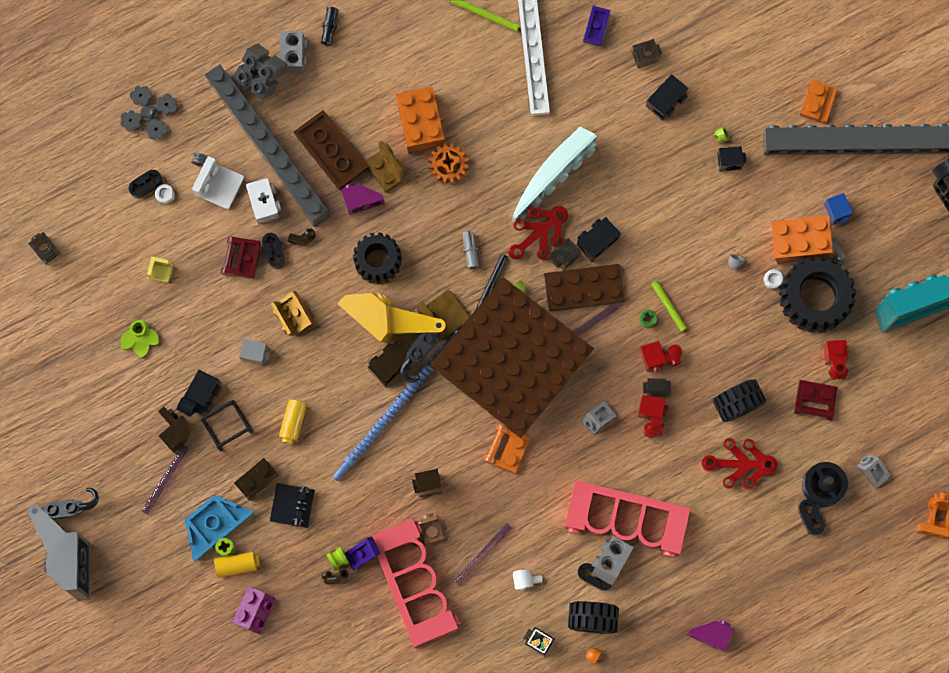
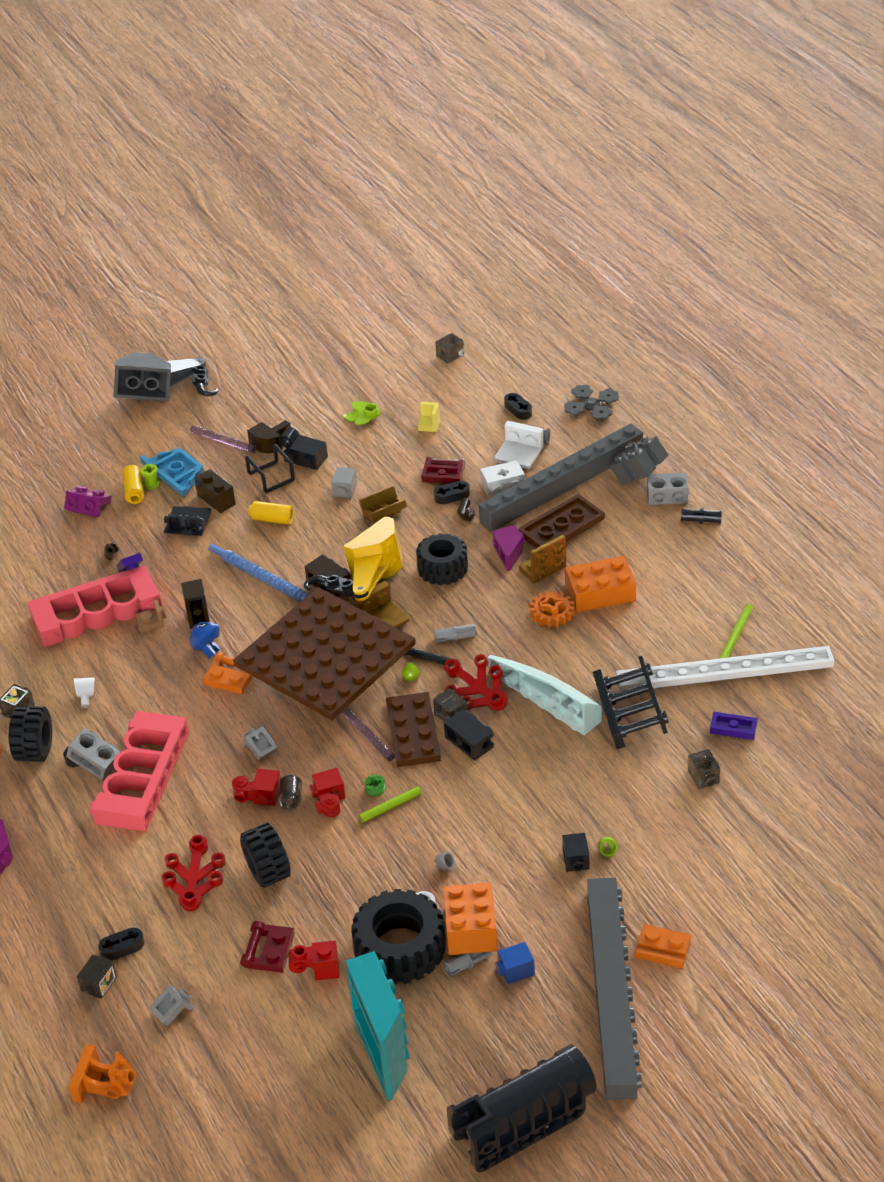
camera: 90 degrees right, 35 degrees down
(164, 194) = (507, 416): white tile -> none
(337, 558) = (127, 548): lime wheel -> none
(470, 474) = (202, 638): none -> blue piece
(482, 554) = (119, 660): bar -> none
(583, 119) = (614, 715): none -> black fence
(667, 97) = (650, 790): black brick -> none
(825, 484) = (157, 949): black wheel -> none
(846, 531) = (97, 976): none -> clear smoke brick

